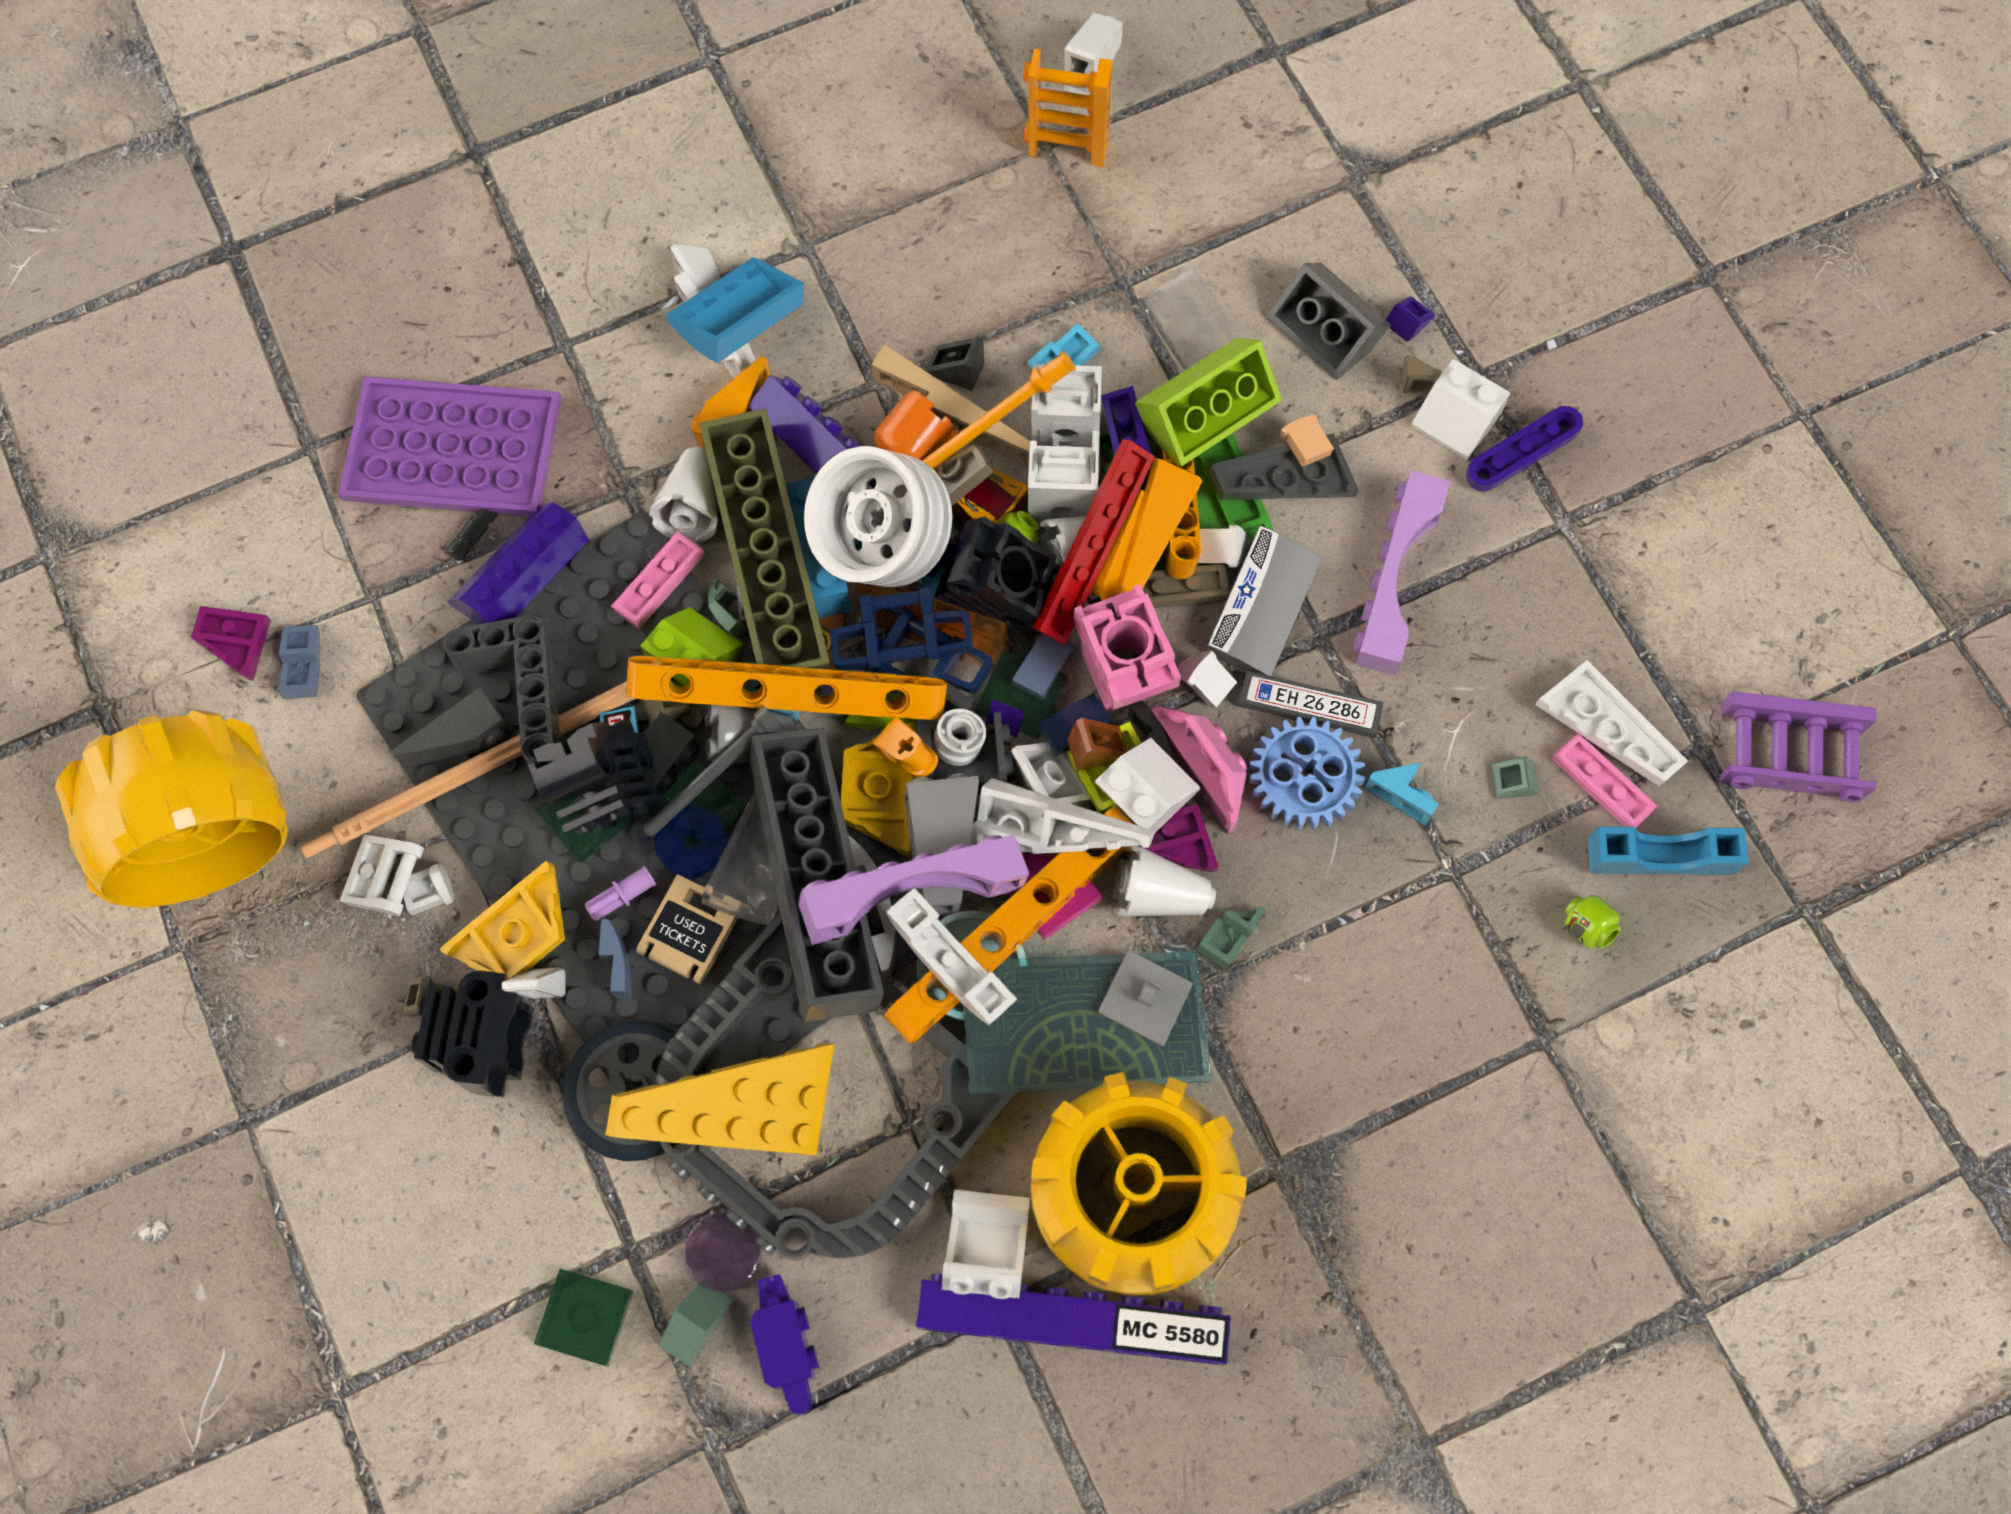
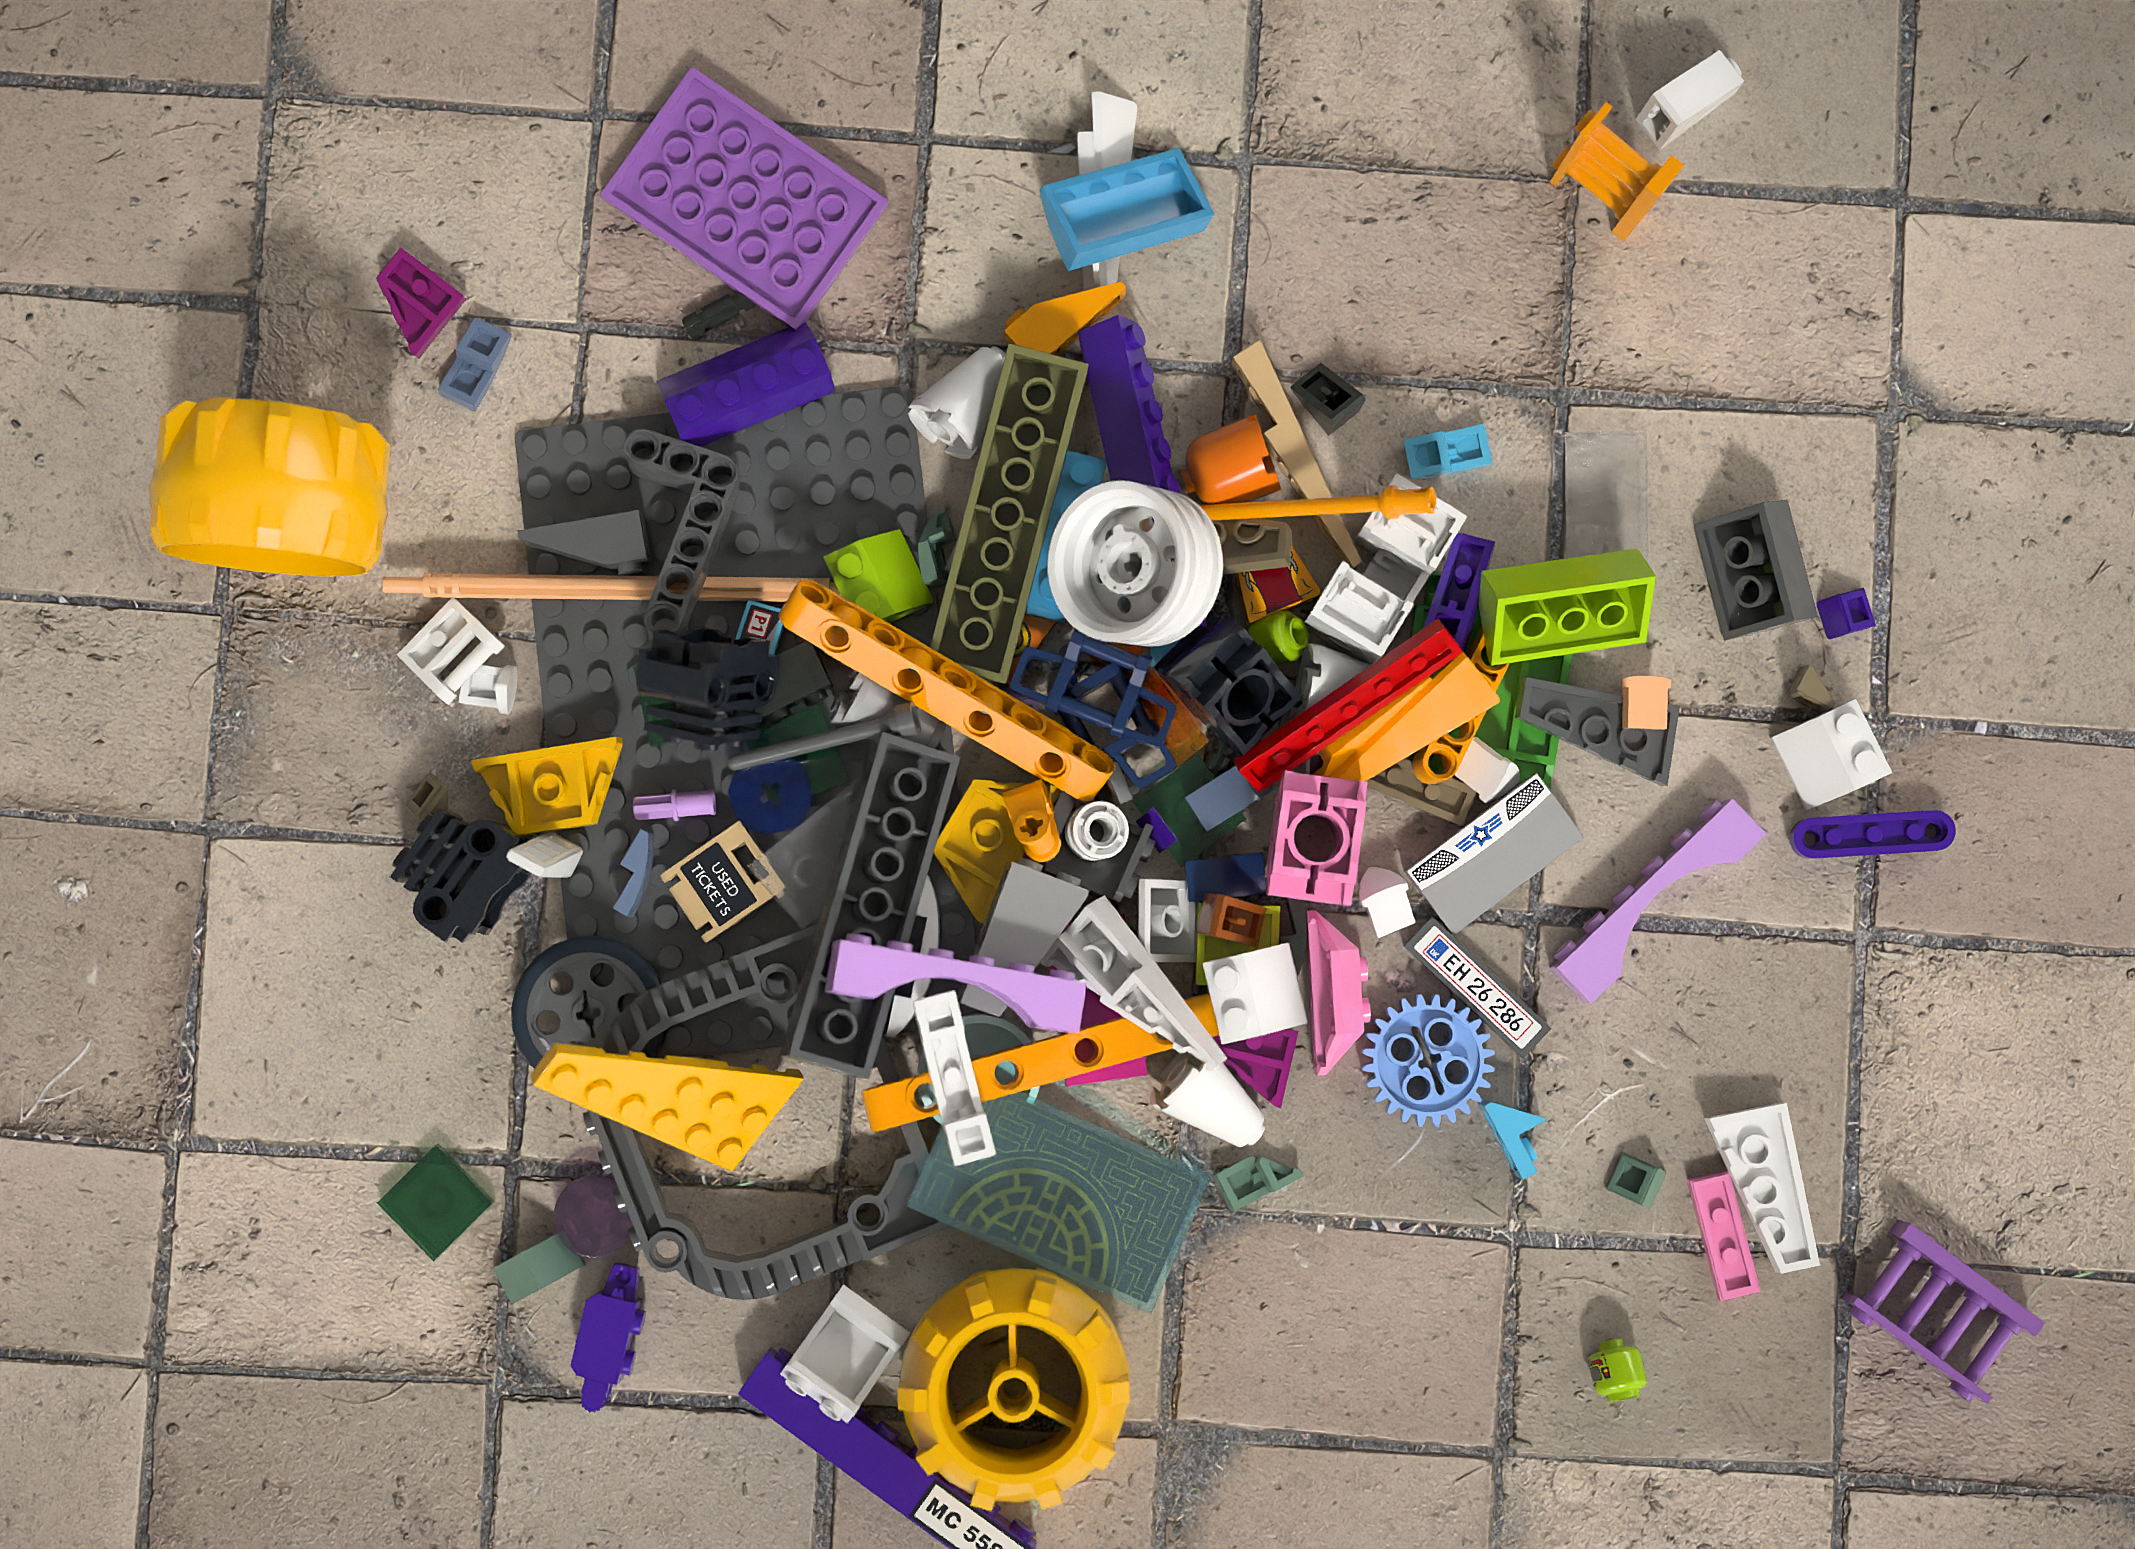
camera: 25 degrees right, 15 degrees up
(658, 580) = (883, 479): bright pink tile -> none
(1145, 998) = (1131, 1199): light grey piece -> none
(1696, 853) = (1737, 1346): dark azure arch -> none

